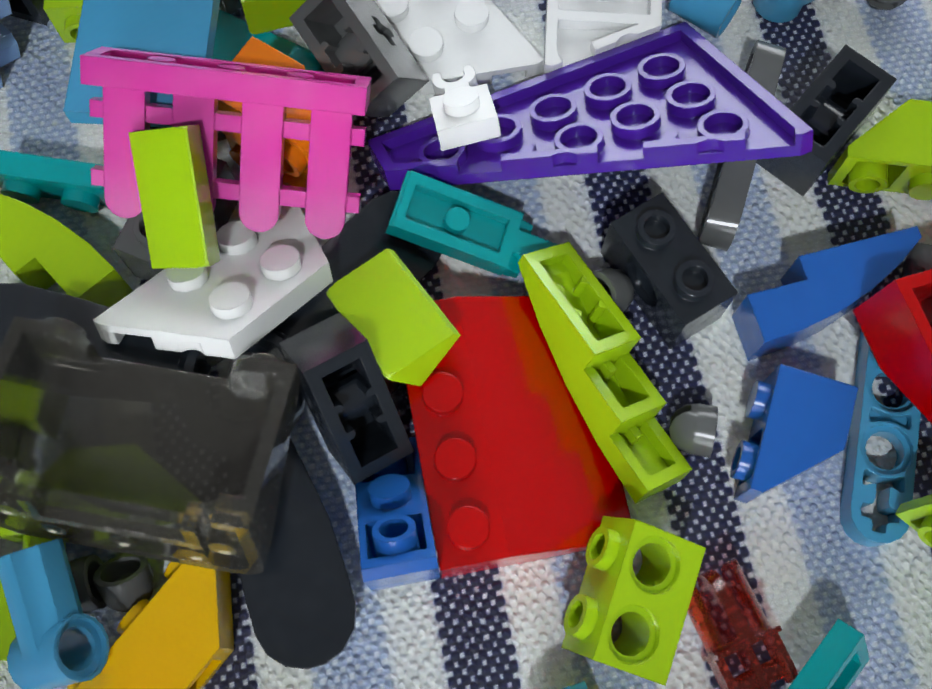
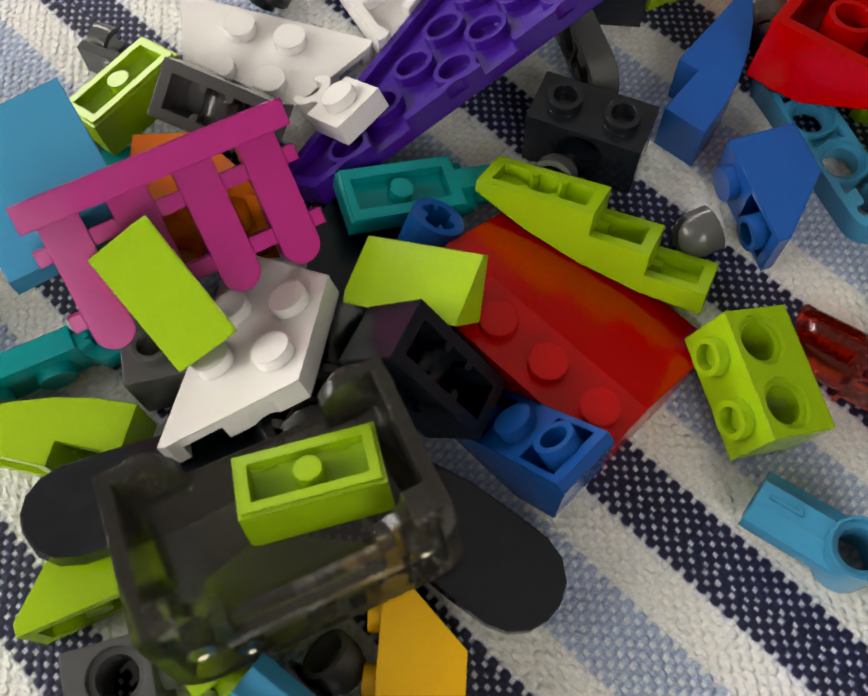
camera: 30 degrees left, 5 degrees down
(184, 431) = (311, 484): none -> lime slope
(453, 271) = (431, 223): none -> blue gear

